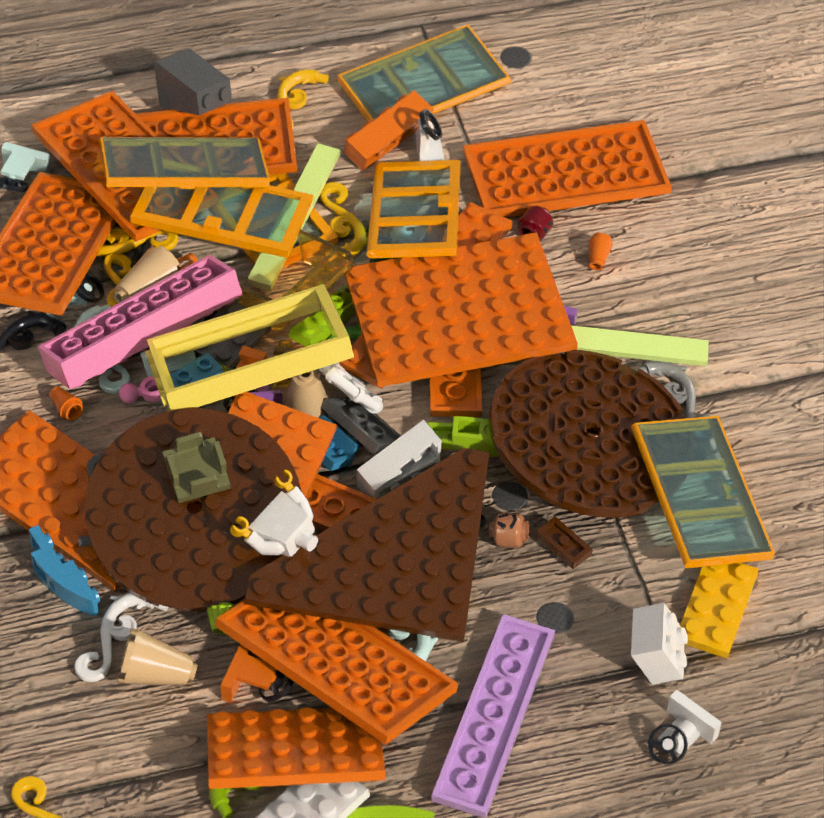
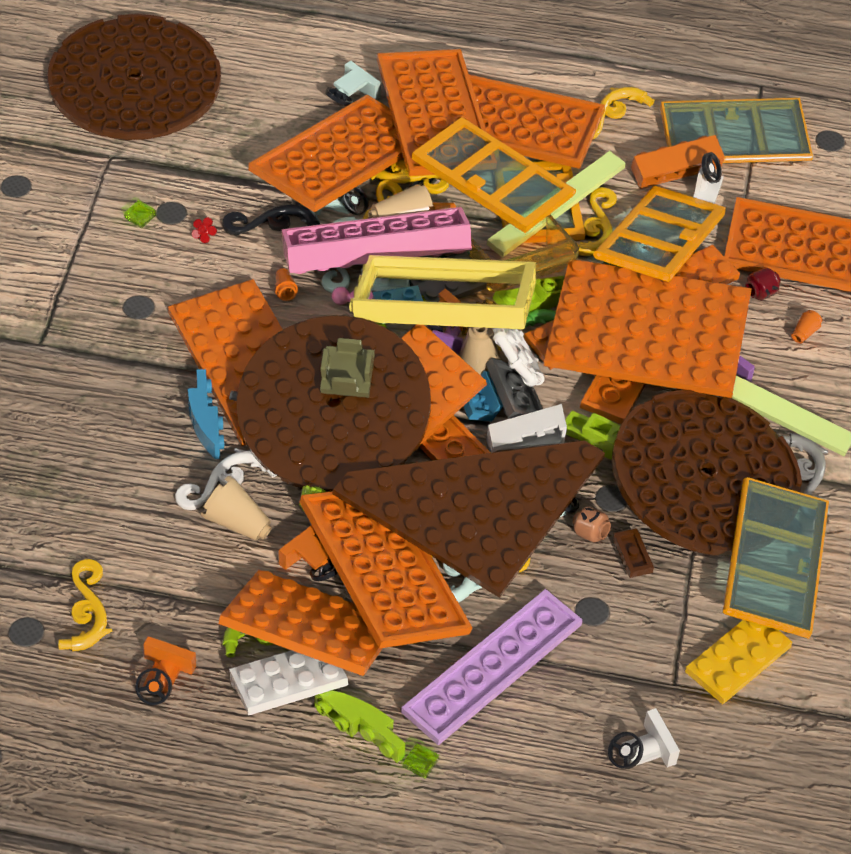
camera: 25 degrees right, 0 degrees up
(183, 162) = (481, 125): clear light blue door -> none
(190, 83) = (527, 64): dark grey slope -> none
(282, 525) = (392, 442): white torso -> none
(658, 643) = (661, 664): white brick -> none

